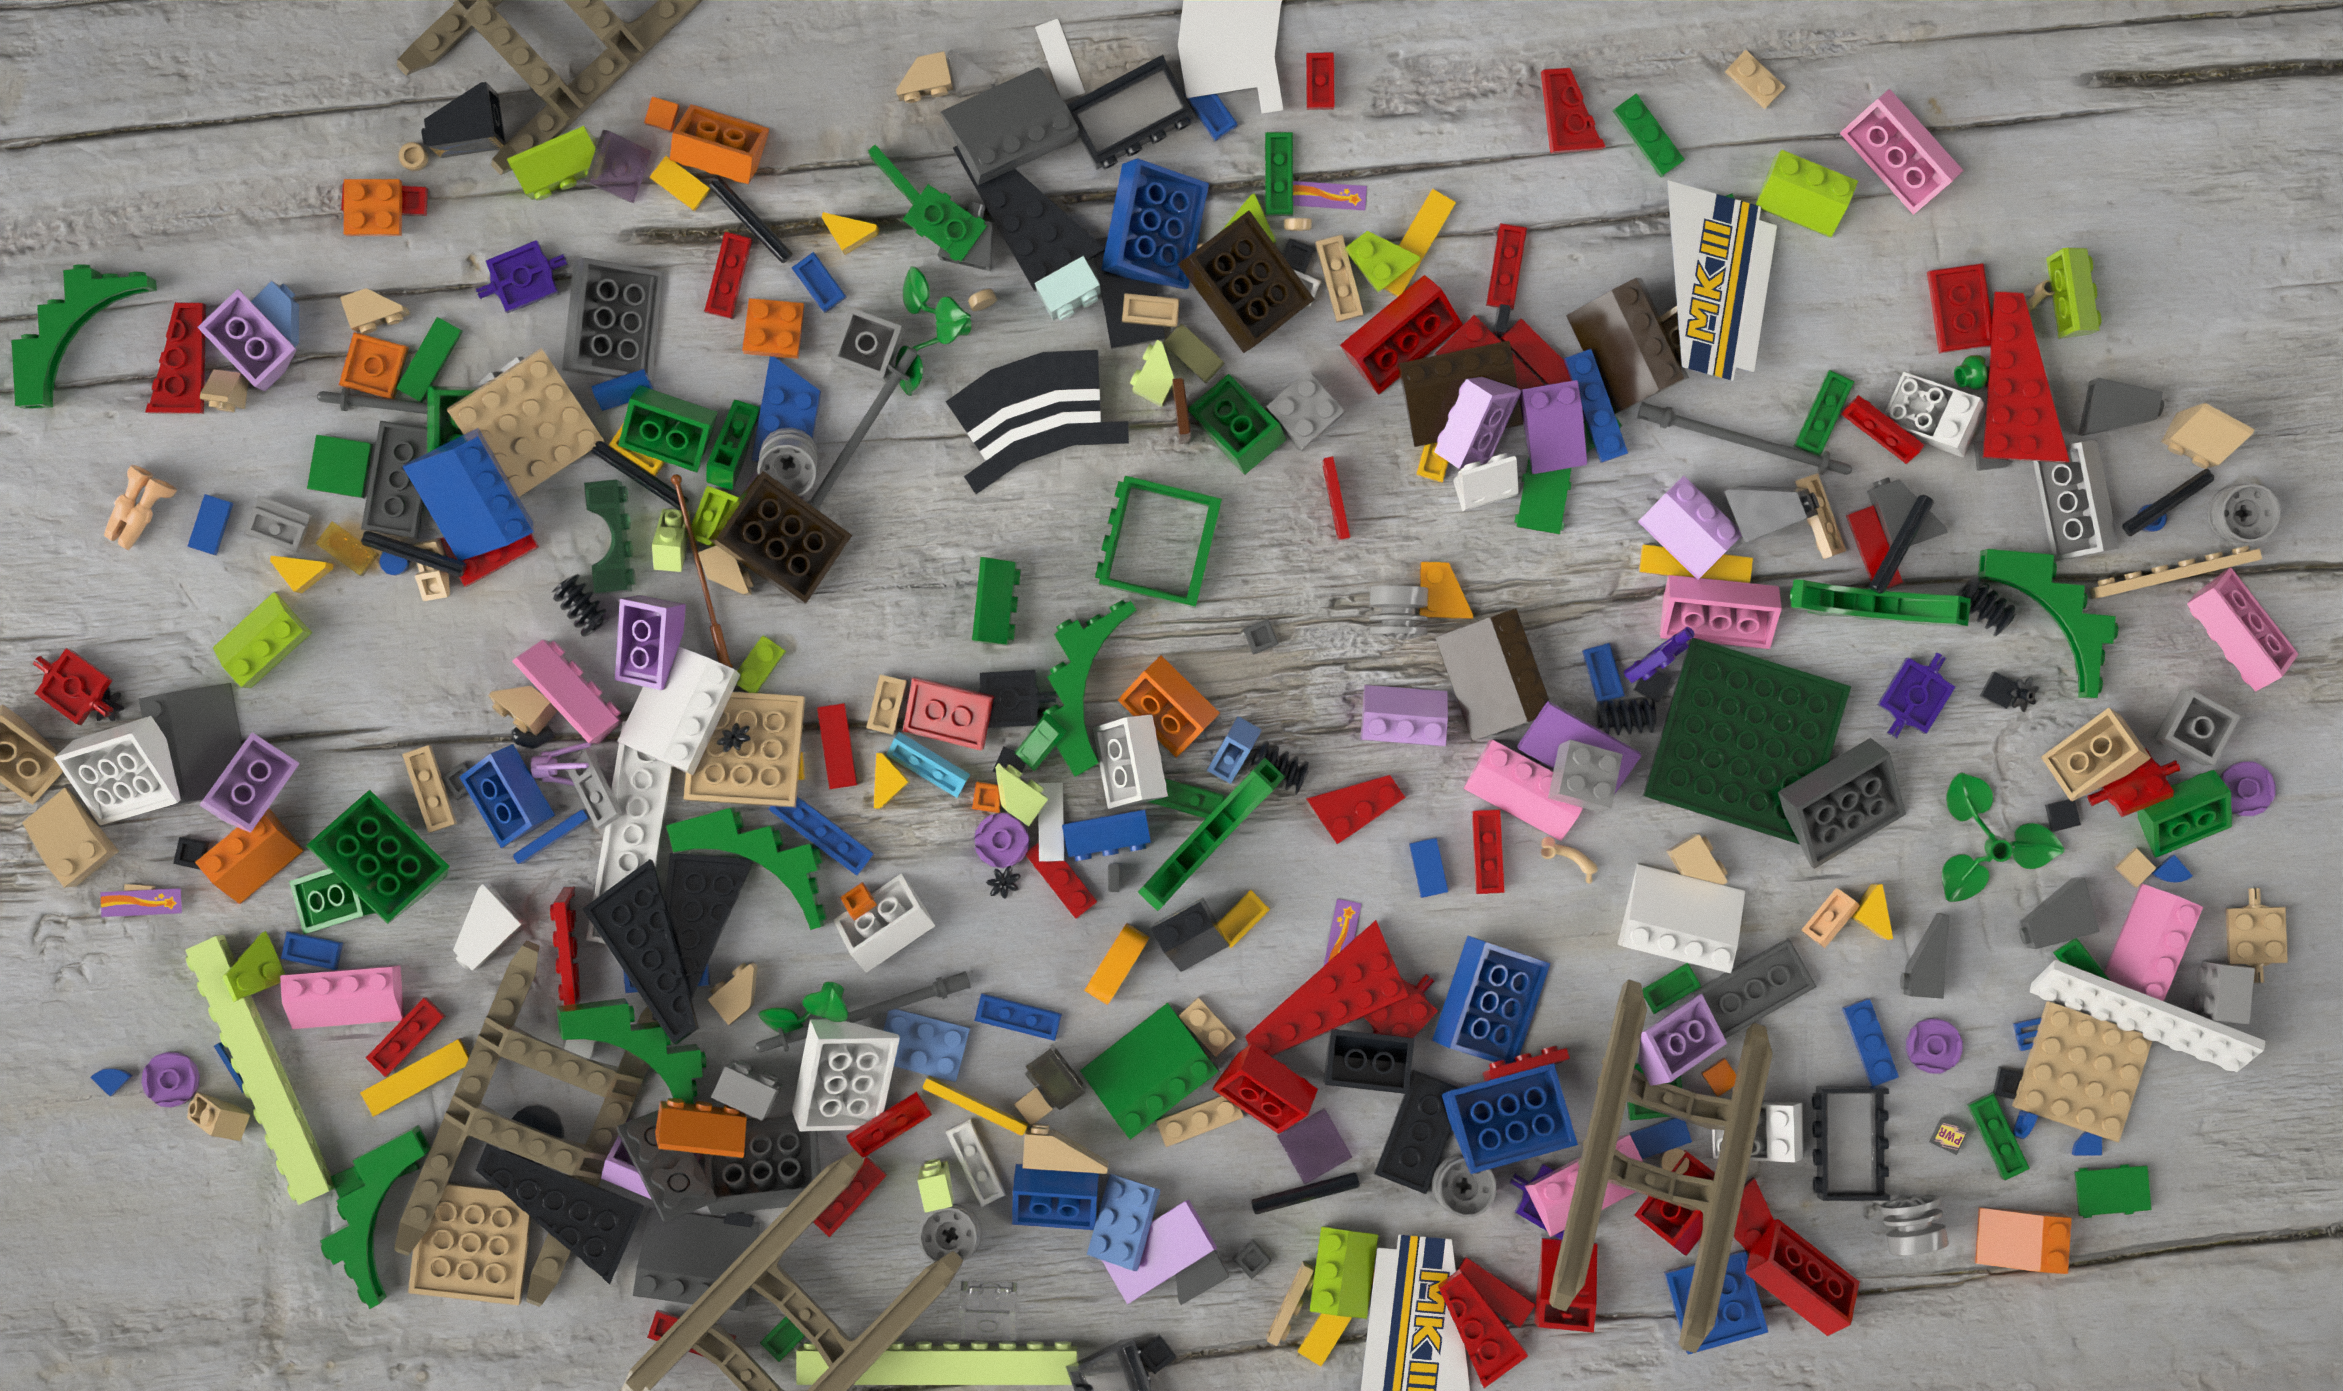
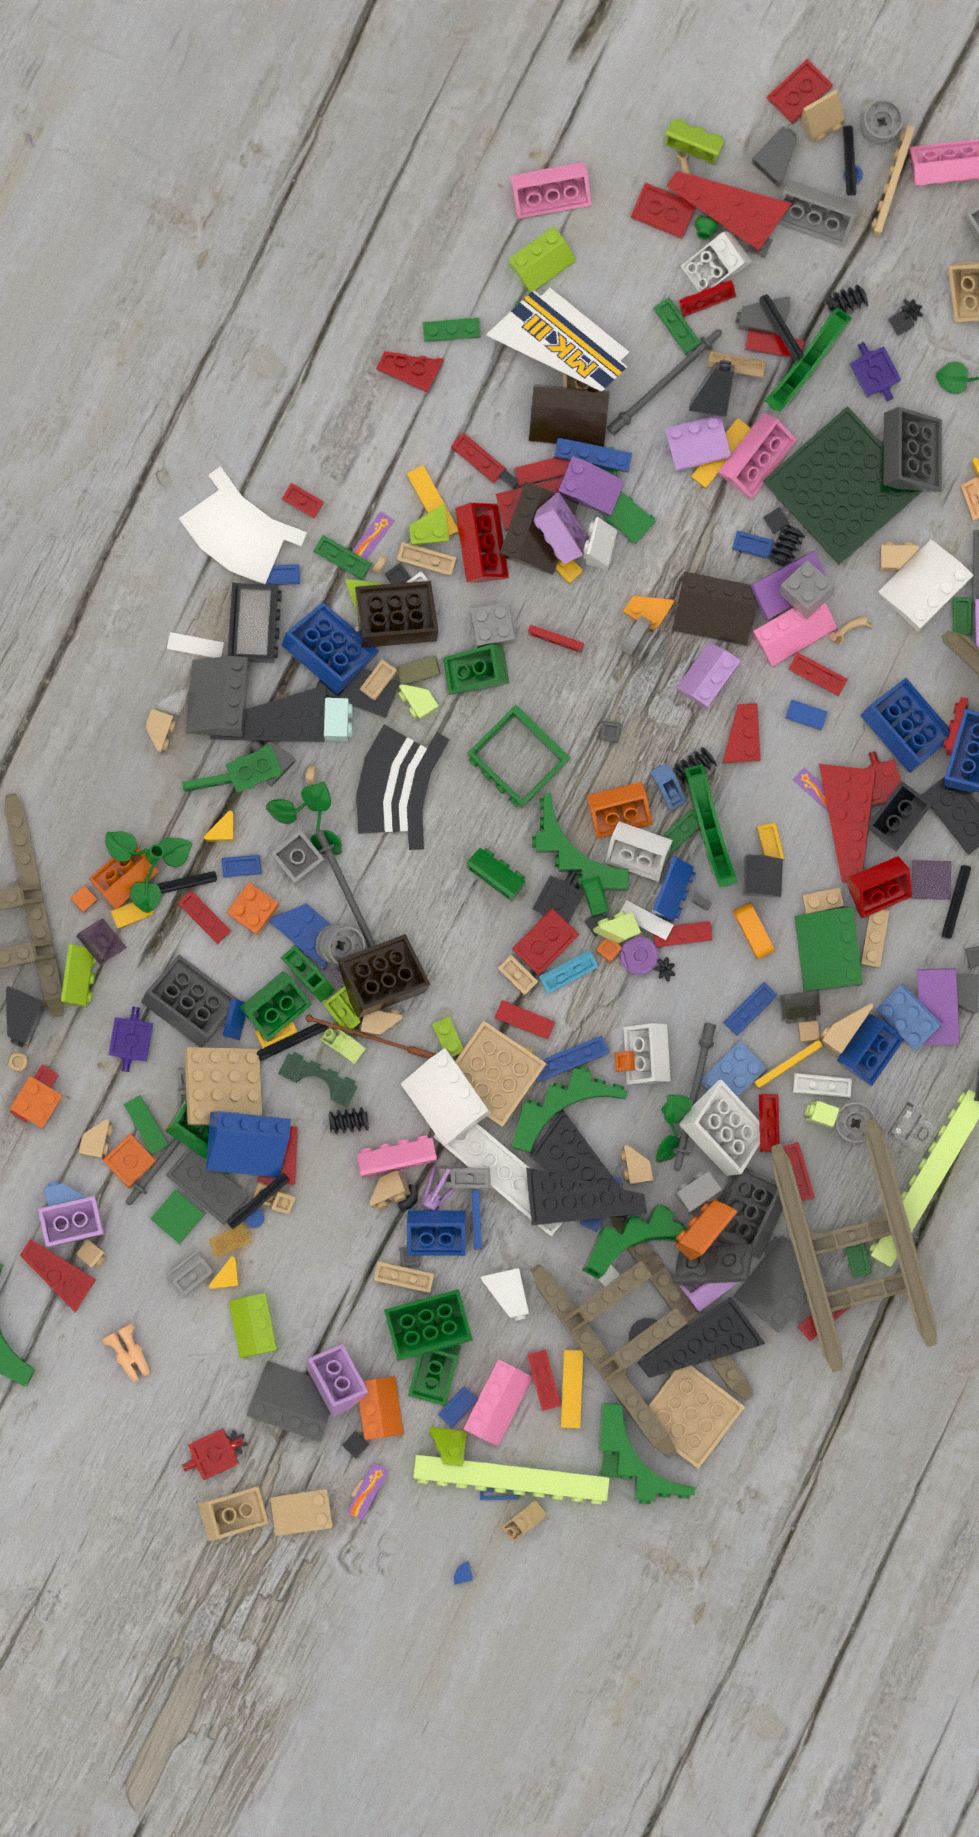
camera: 55 degrees left, 5 degrees down
(121, 770) = (284, 1450): white slope -> none
(170, 1079) = (484, 1538): medium lavender tile -> none
(210, 524) = (165, 1315): blue tile -> none
(567, 946) = (543, 1248): red wing -> none
(648, 640) = (395, 1092): medium lavender slope -> none
(734, 738) = (485, 1074): black plant -> none
(751, 119) = (173, 850): none -> green plant
(888, 781) = (564, 1001): yellow slope -> none
(1181, 410) = (450, 696): reddish brown tile -> none
(1660, 656) = (763, 504): dark purple plate -> none
(1755, 79) = (456, 248): tan plate -> none
(2064, 602) = (872, 254): green arch -> none
(2219, 383) = (799, 90): none -> red tile

